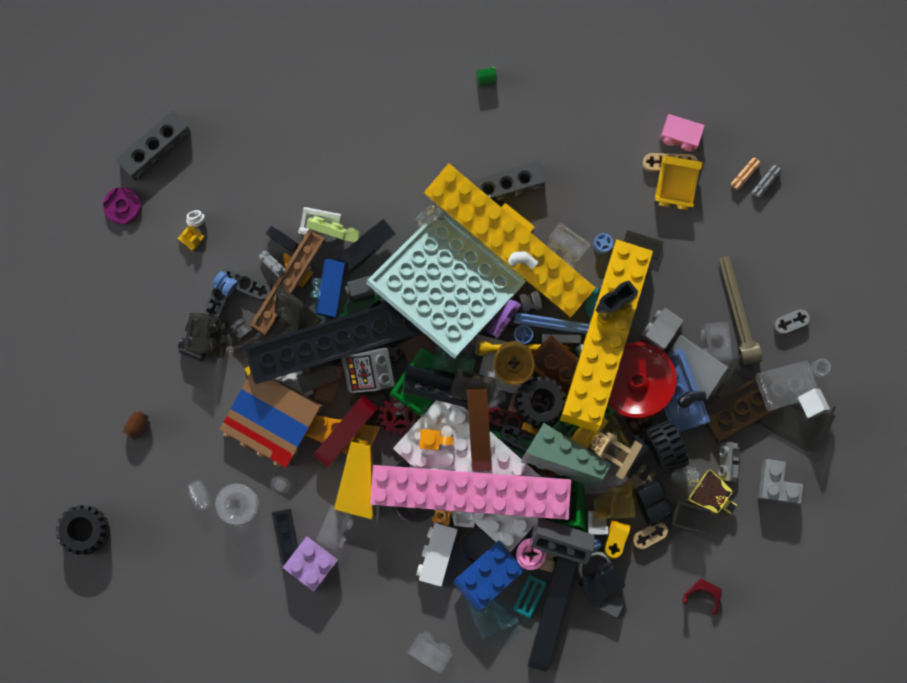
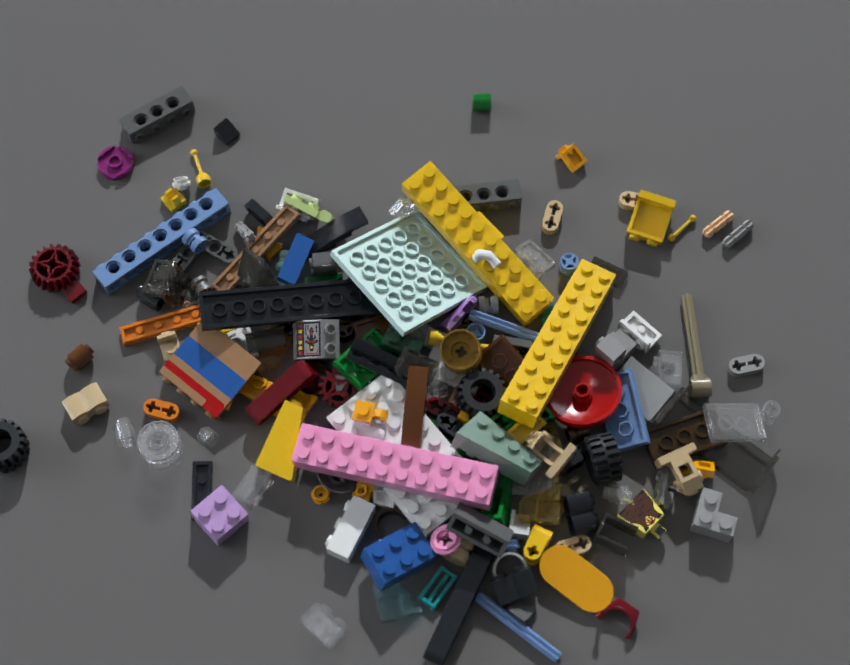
camera: 10 degrees right, 15 degrees down
(72, 333) = (50, 262): none -> dark red gear
(113, 354) = (74, 291): none -> dark red tile
(154, 472) = (86, 404): none -> tan brick
(189, 297) = (159, 249): none -> medium blue brick
(211, 374) = (154, 326): none -> orange tile
(216, 210) = (203, 179): none -> yellow hinge
(222, 397) = (168, 343): none -> tan bracket
(229, 152) = (226, 131): none -> black slope
(229, 460) = (160, 414): none -> orange beam
(401, 529) = (315, 494): none -> light orange plate
(583, 194) = (555, 218): none -> tan beam
(587, 123) = (571, 157): none -> light orange bracket
(610, 621) = (518, 627): none -> medium blue axle
(617, 300) = (572, 305): black brick -> none
(658, 566) = (576, 578): none -> light orange tile
(681, 133) = (661, 177): bright pink brick -> none
(683, 305) = (640, 331): none -> white bracket
(690, 397) = (632, 414): black arm -> none
(701, 195) = (671, 237): none -> yellow hinge
(739, 436) = (677, 458): none -> tan tile
(760, 435) = (706, 467): none -> light orange plate
(813, 403) = (759, 442): white panel -> none

